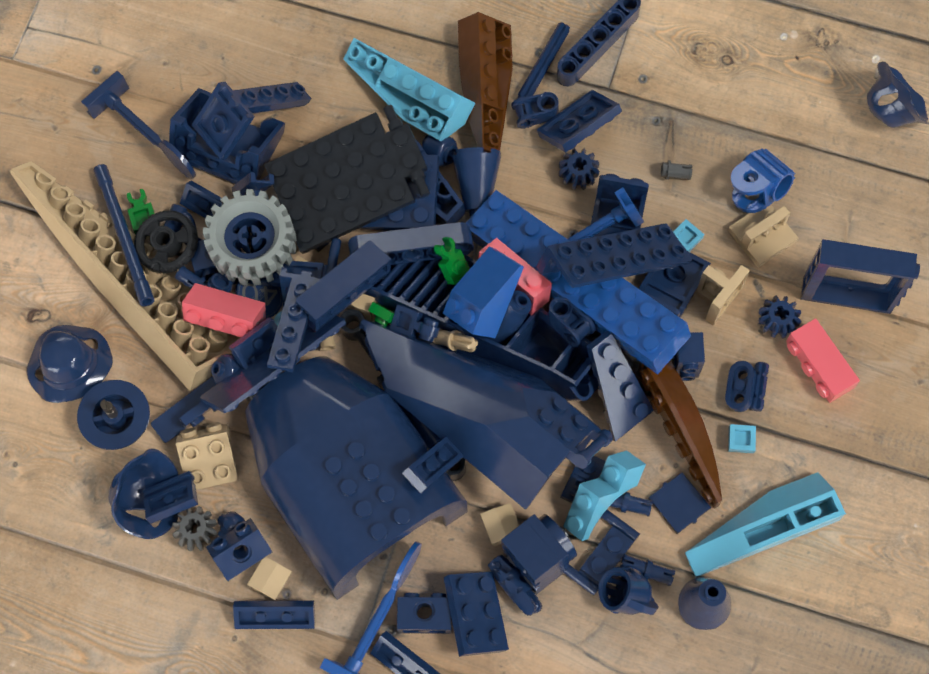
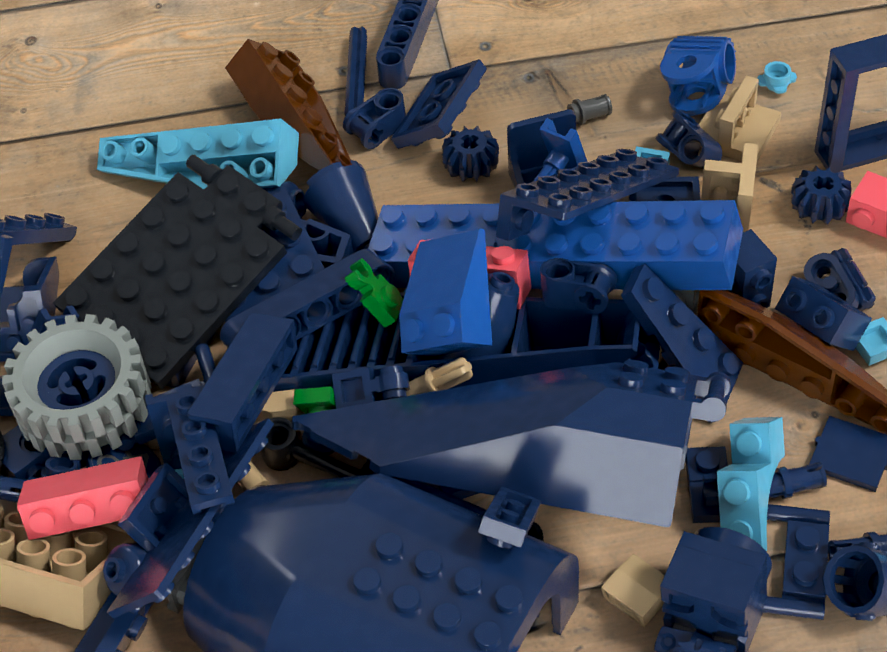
camera: 25 degrees left, 20 degrees down
(717, 407) = (823, 313): none -> dark blue brick
(721, 233) = (686, 137): none -> dark blue piece
(820, 203) = (777, 77): none -> medium azure plate

